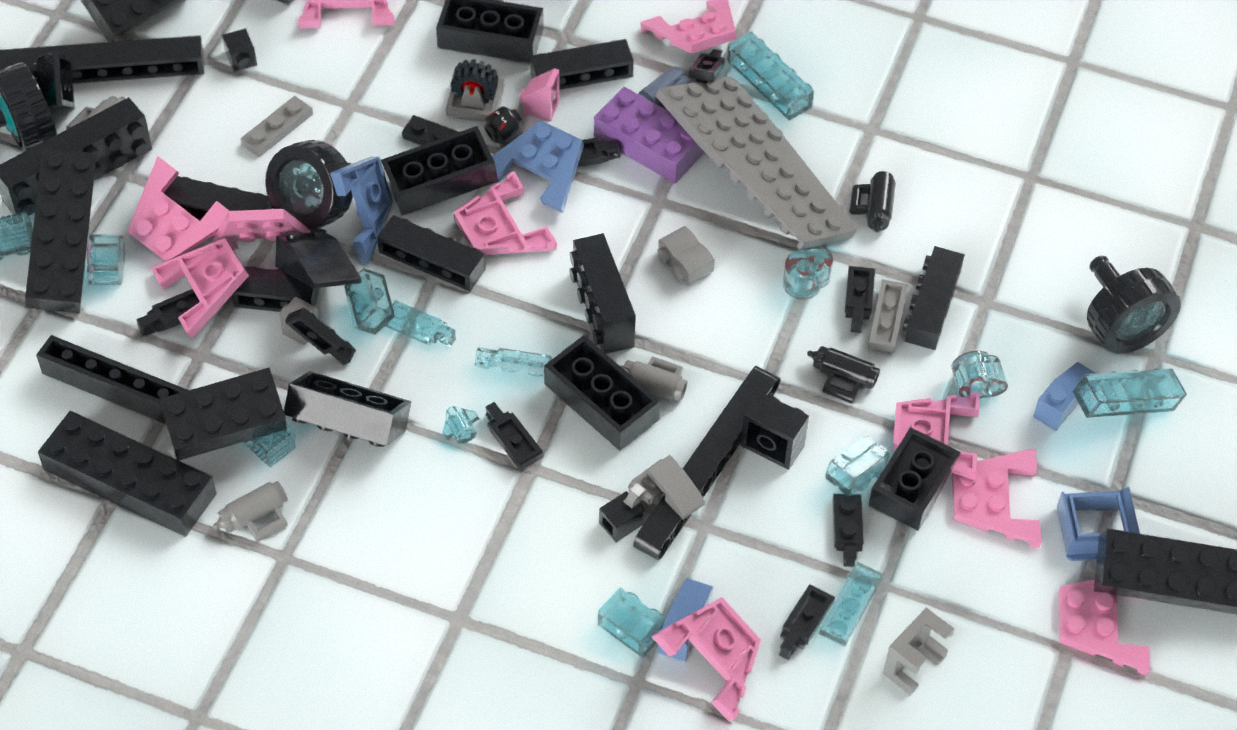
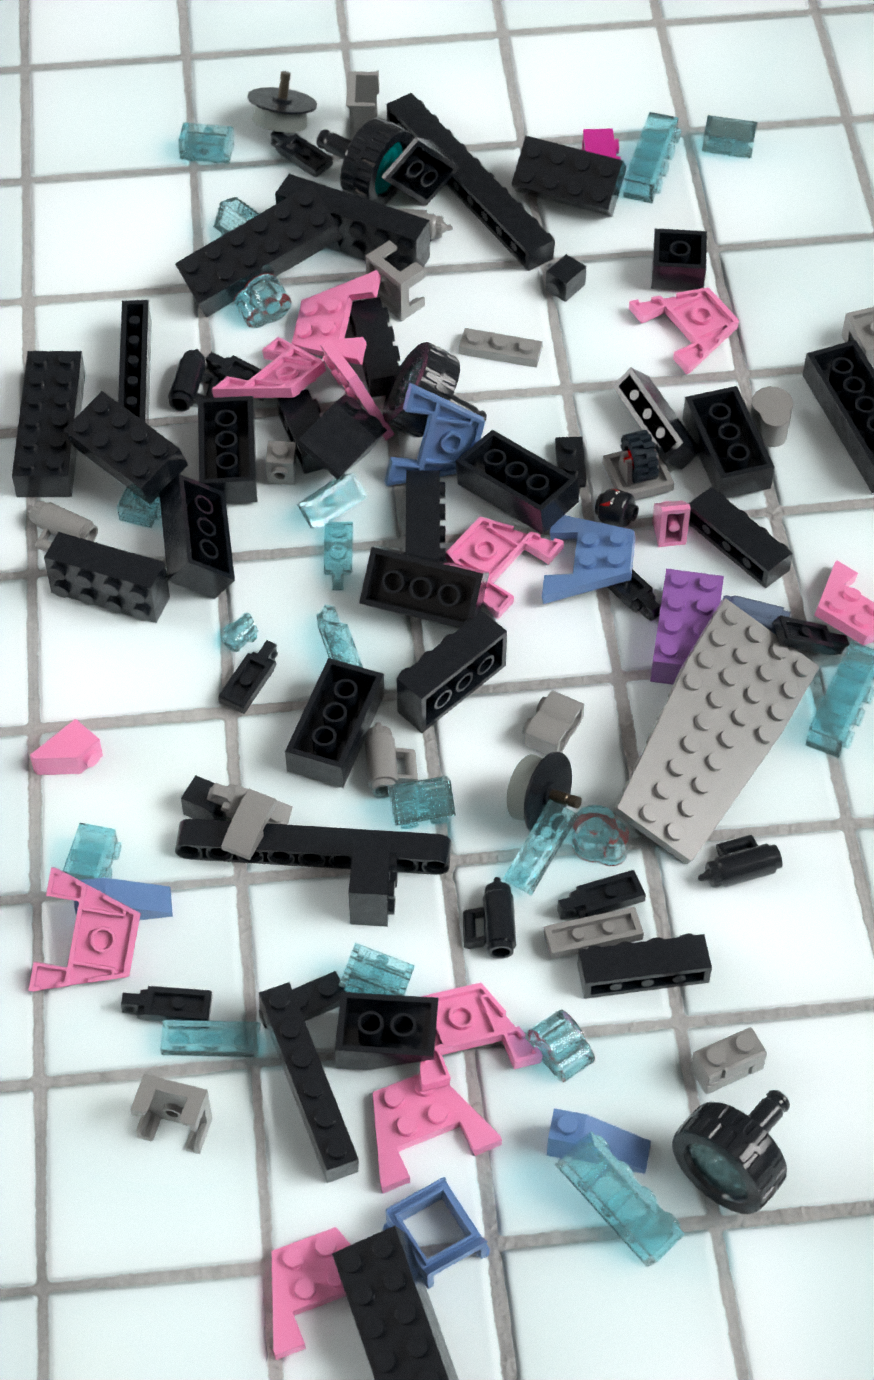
camera: 65 degrees right, 0 degrees up
(154, 352) = (187, 381): none -> black piece
(172, 152) = (394, 283): none -> light grey panel
(248, 343) = (228, 447): none -> black brick
(320, 335) = (266, 484): black hinge -> none
(346, 492) = (107, 577): none -> black brick
(429, 57) = (656, 417): none -> black brick
(509, 275) = (422, 586): none -> black brick
(509, 594) = (67, 751): none -> bright pink slope
(712, 367) = (421, 801): none -> clear light blue brick
(754, 286) = (537, 782): none -> piece
(800, 310) = (540, 847): none -> clear light blue plate
(933, 547) = (308, 1082): none -> black brick
(1040, 283) = (728, 1060): none -> light grey brick

